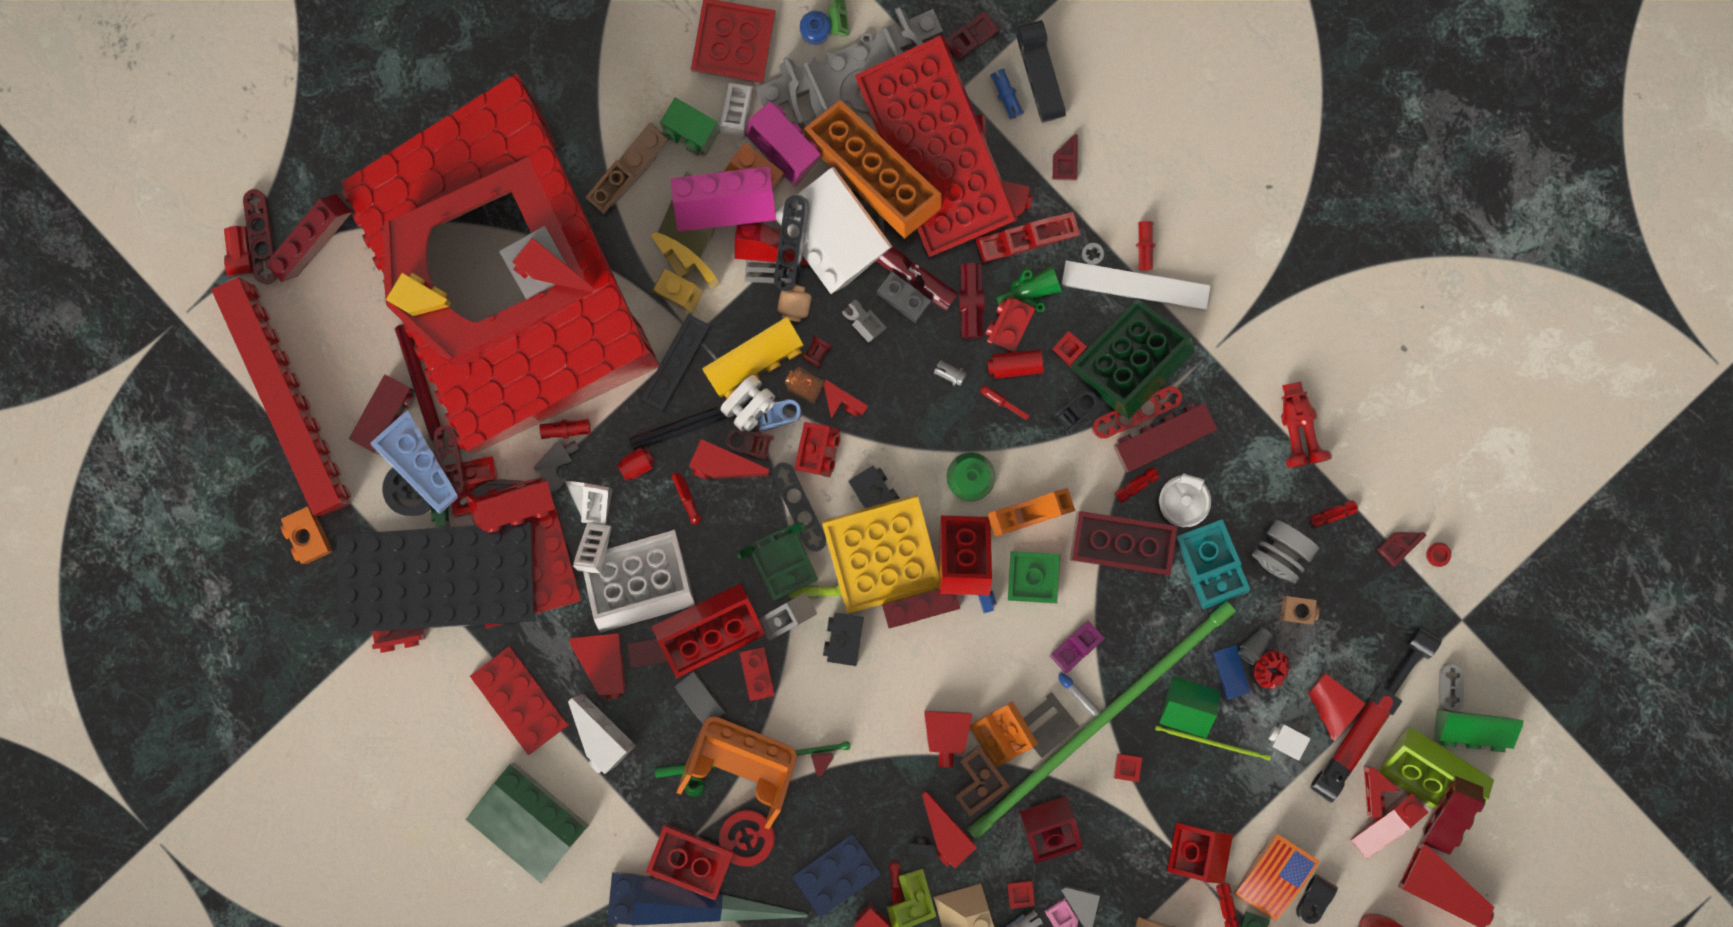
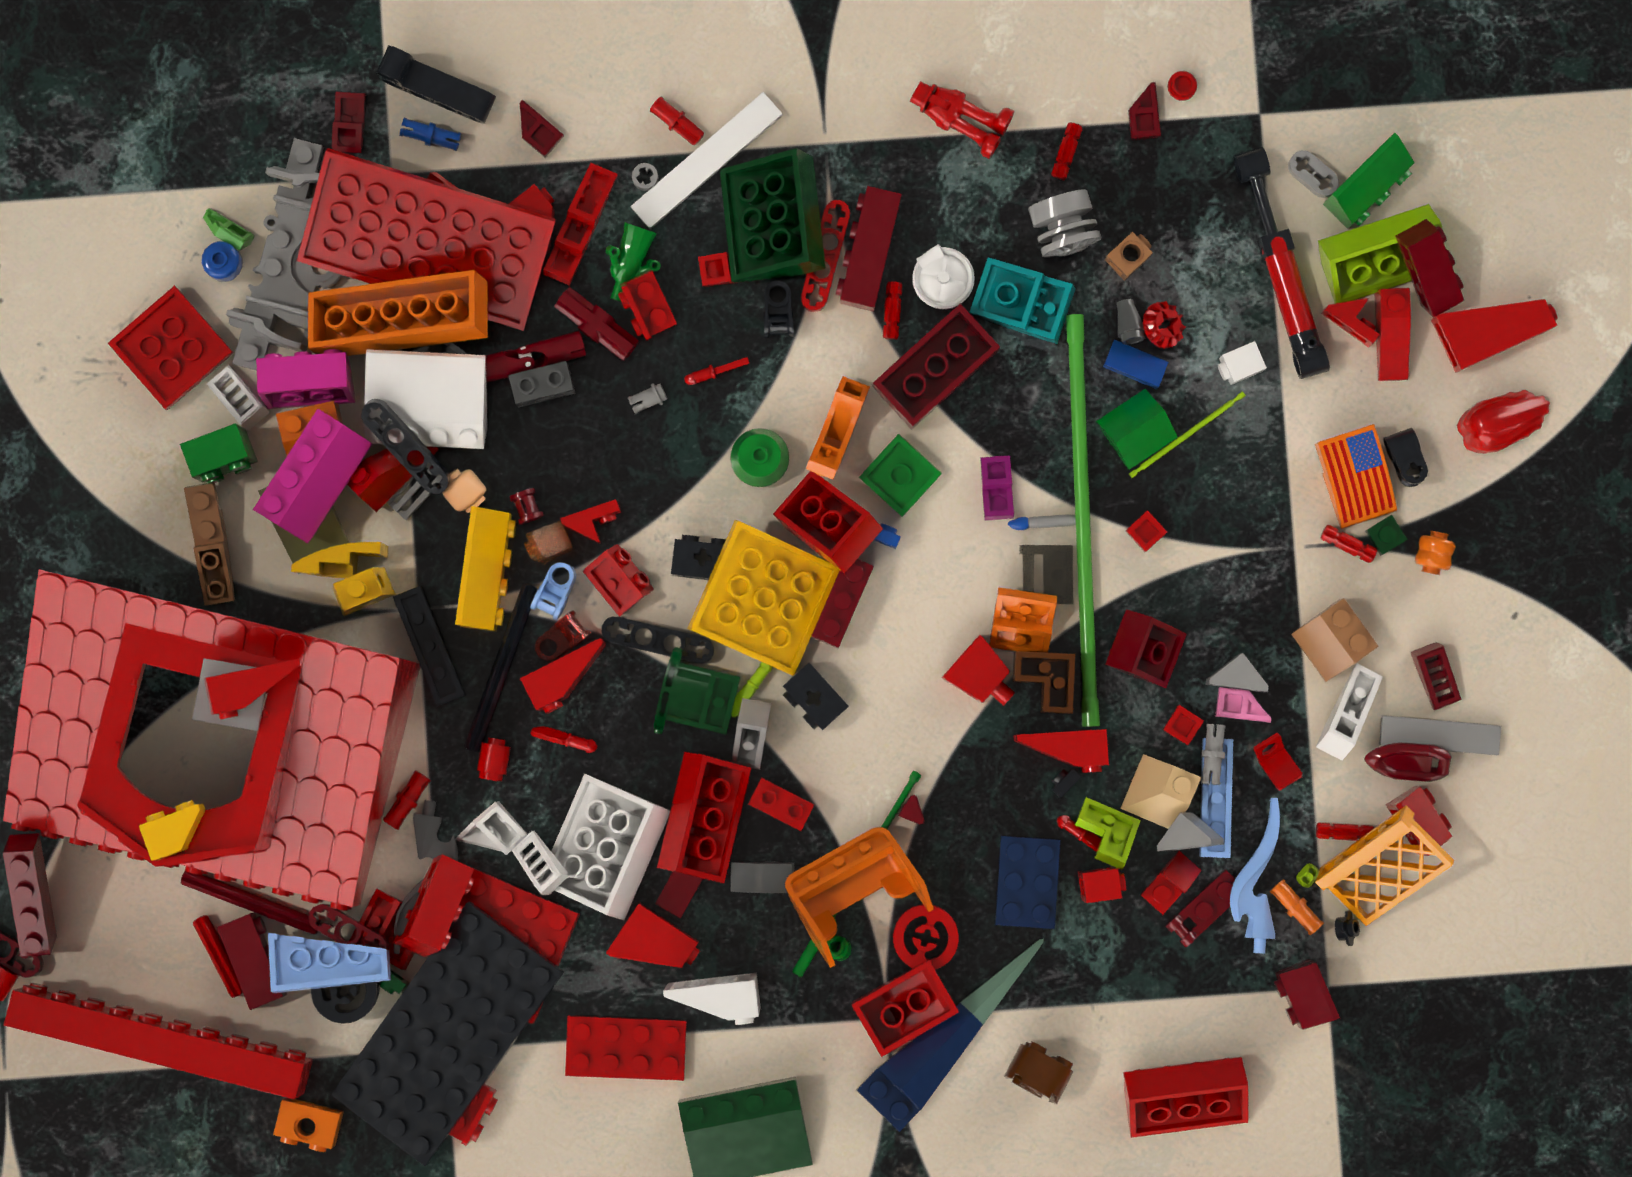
camera: 50 degrees left, 0 degrees up
(369, 386) = (217, 954): none -> red axle
(761, 402) = (532, 595): white brick -> none
(865, 322) = (537, 439): light grey plate -> none
(1016, 364) = (689, 330): red brick -> none
(1200, 853) = (1278, 528): red slope -> none
(1334, 704) = (1242, 293): red slope -> none

